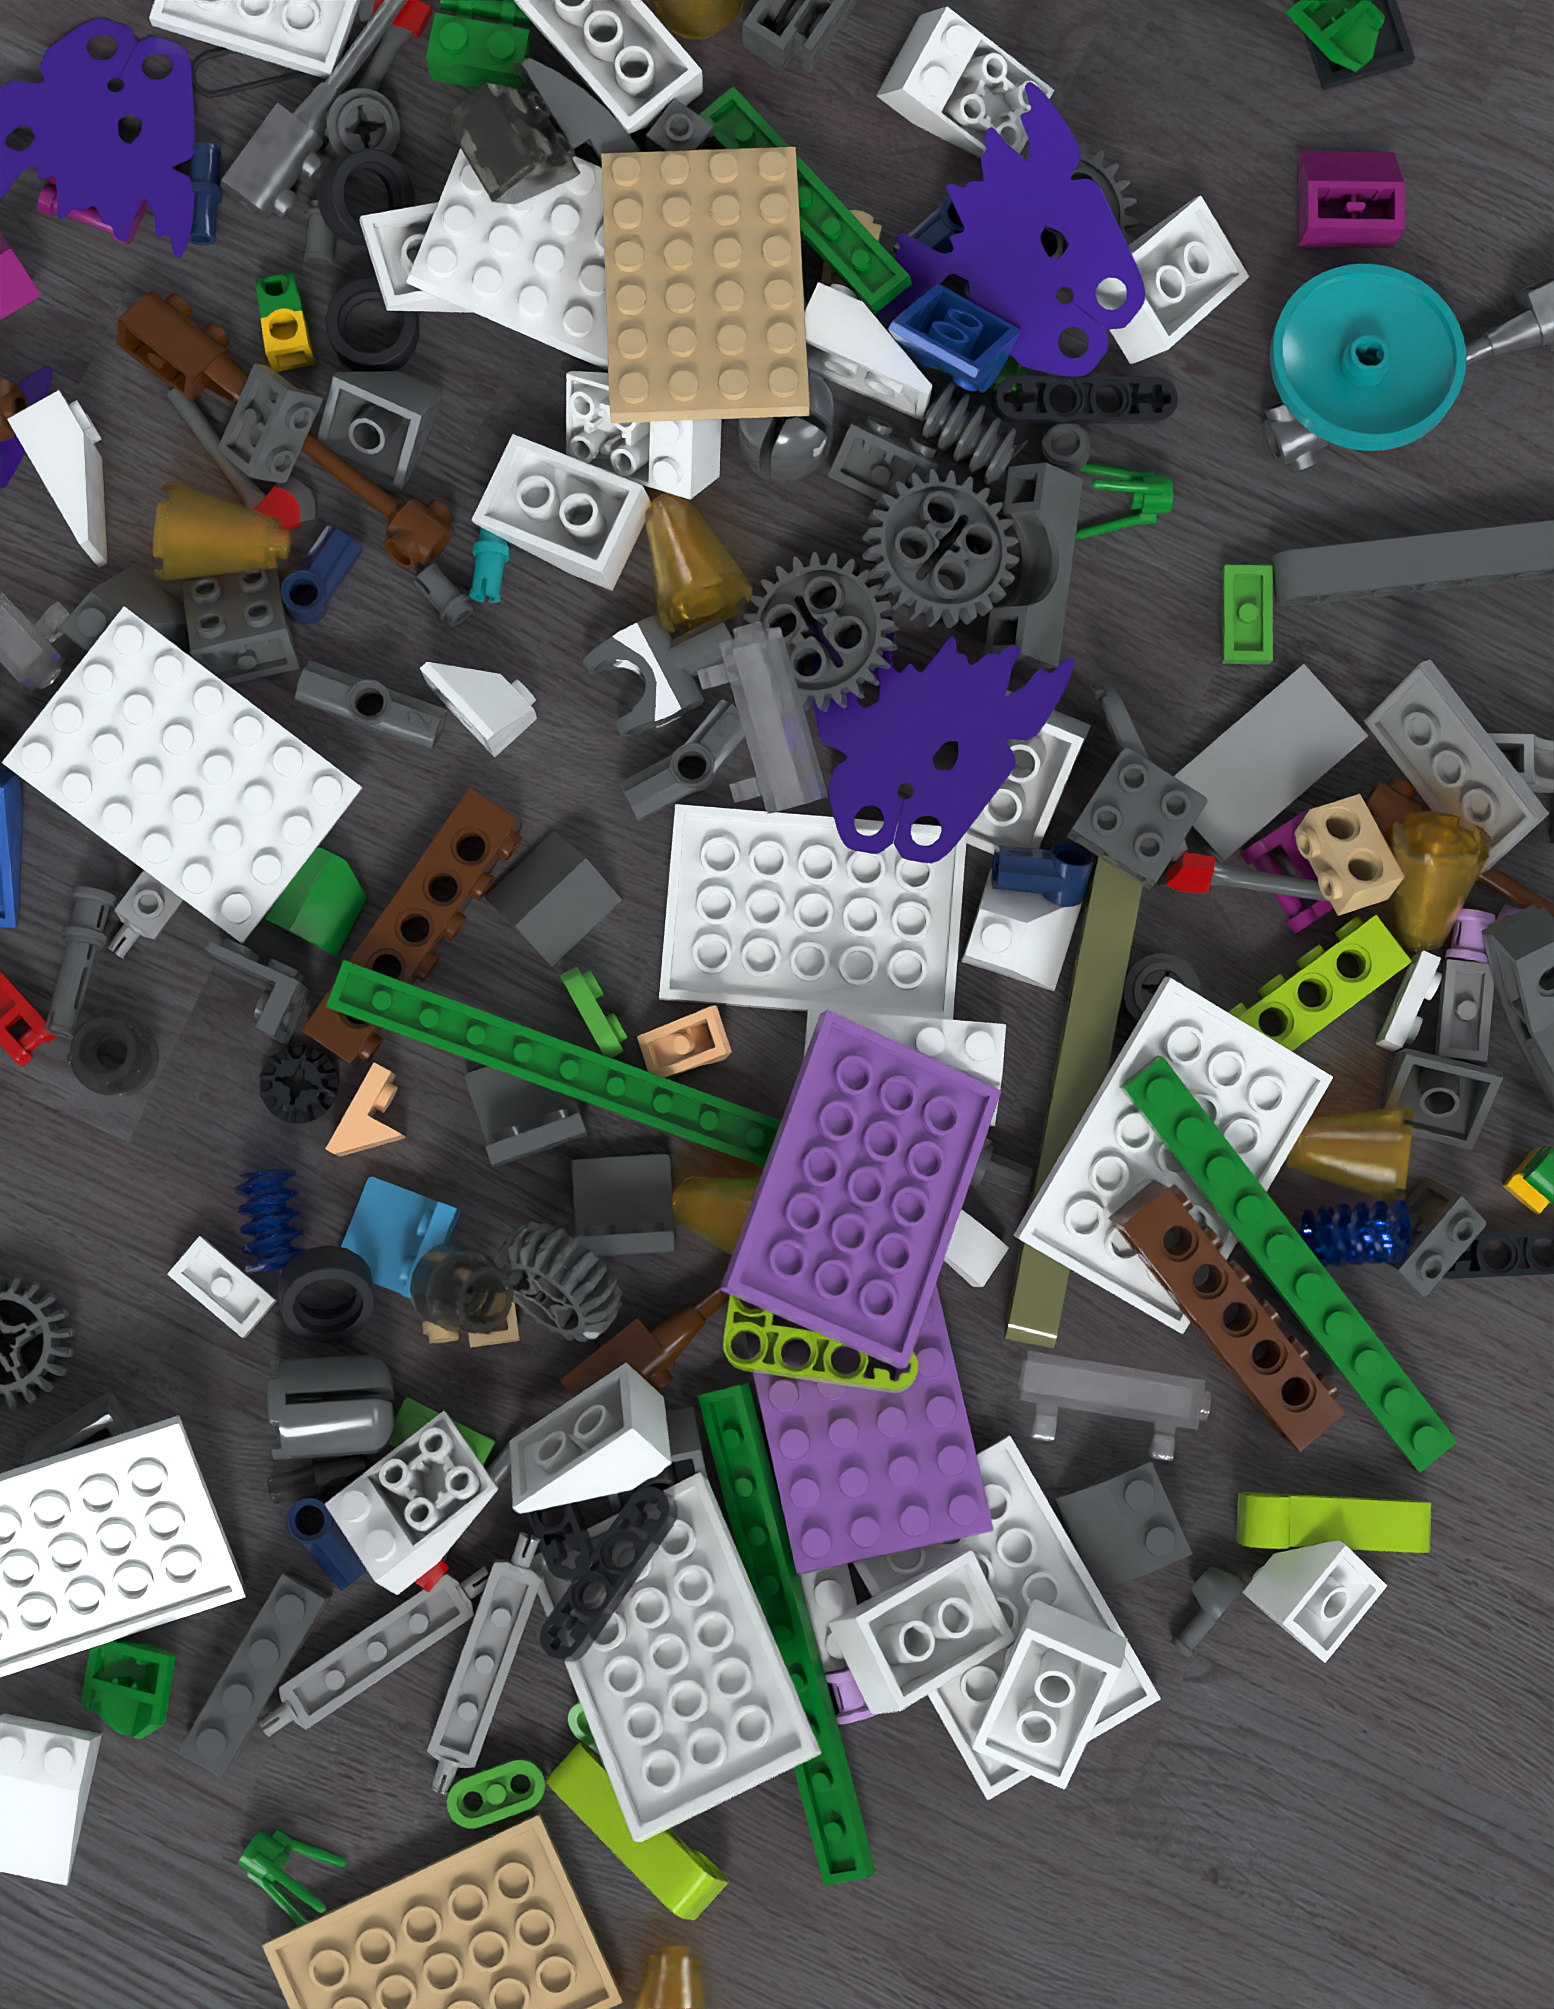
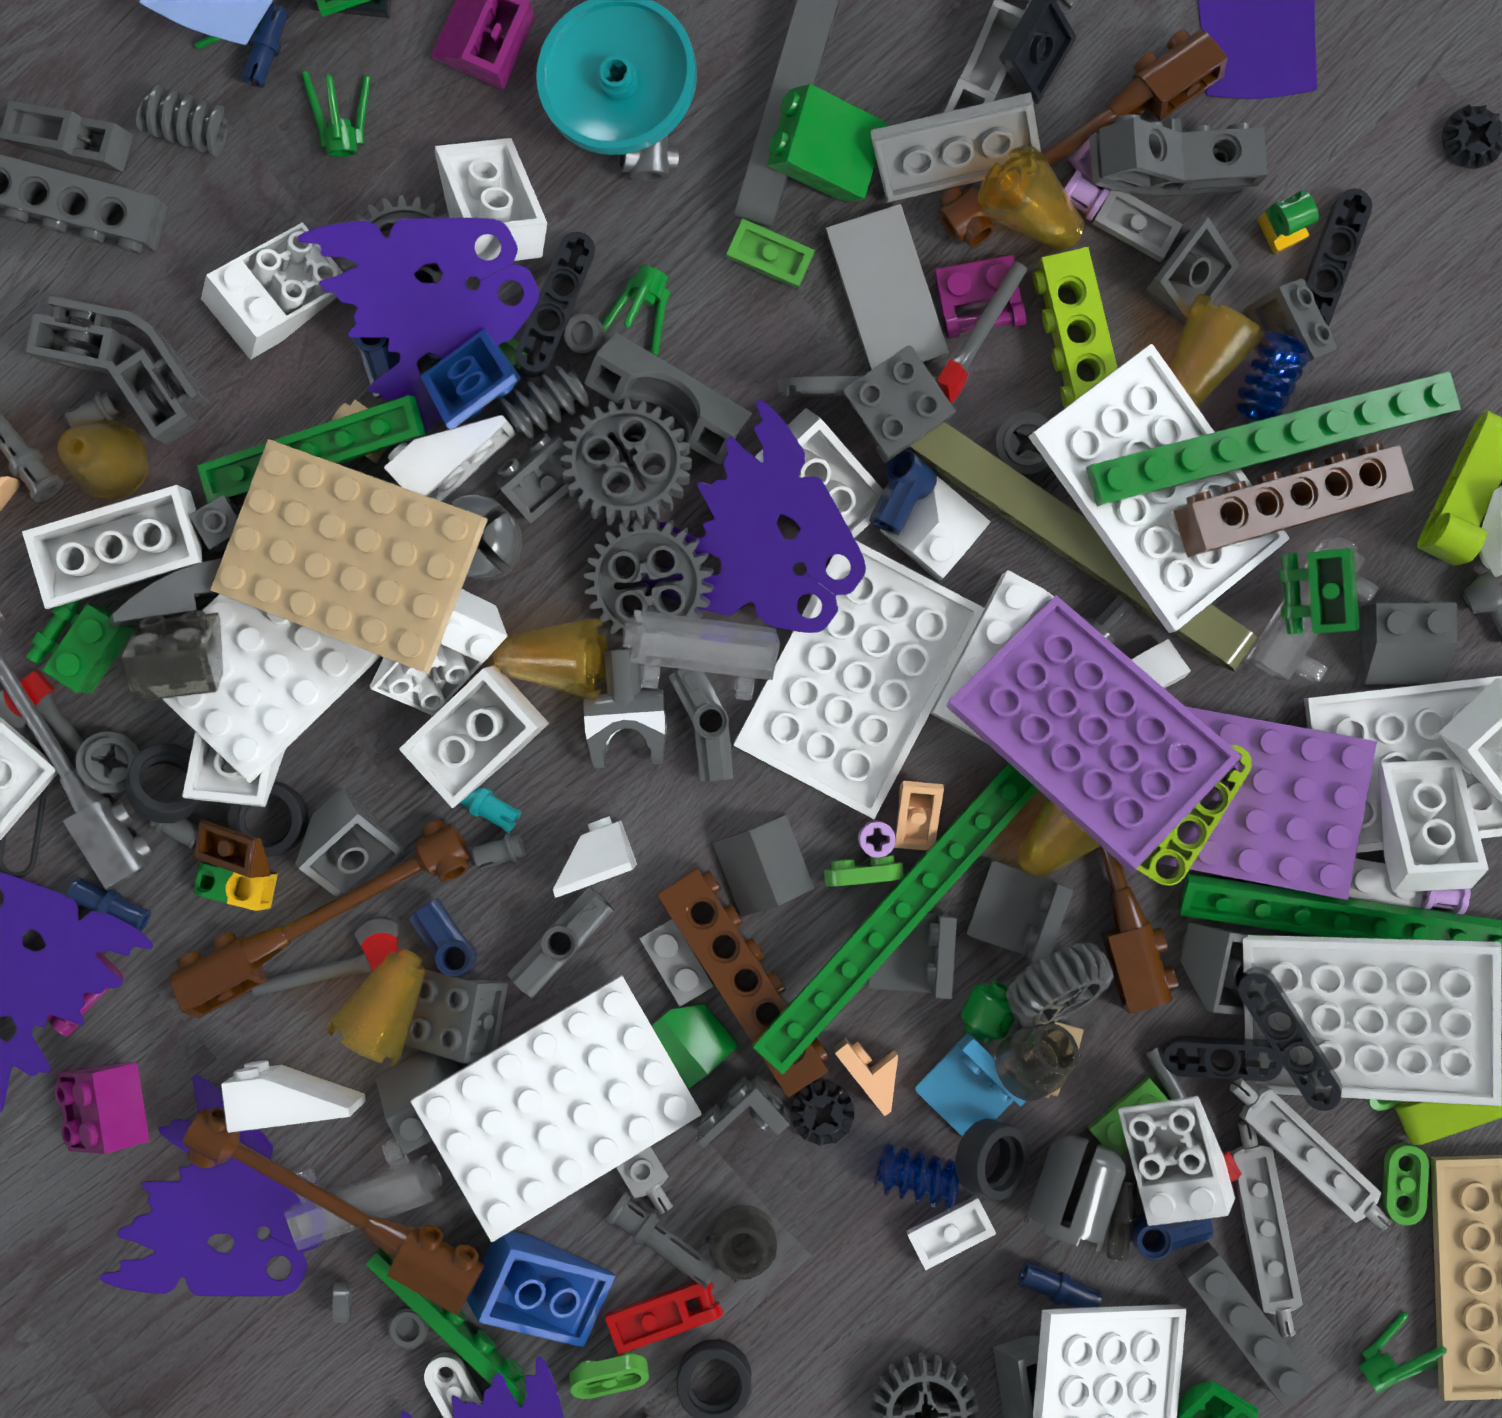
camera: 55 degrees left, 5 degrees up
(209, 1436) = (1058, 1287): none -> dark blue pin
(269, 425) = (314, 931): dark grey bracket -> none
(322, 298) = (231, 850): none -> reddish brown slope
(400, 845) = (676, 962): none -> light grey plate
(490, 1219) = (988, 1012): none -> green head
(592, 1444) = (1194, 1013): white slope -> none
(623, 1006) = (885, 847): none -> lavender bush
(1141, 1395) = (1331, 589): none -> green brick
(1167, 85) = (339, 136): none -> green plant
(1356, 851) = (990, 248): tan brick -> none
(1394, 617) = (824, 143): none -> green brick
(1418, 983) = (1104, 253): white plate -> none

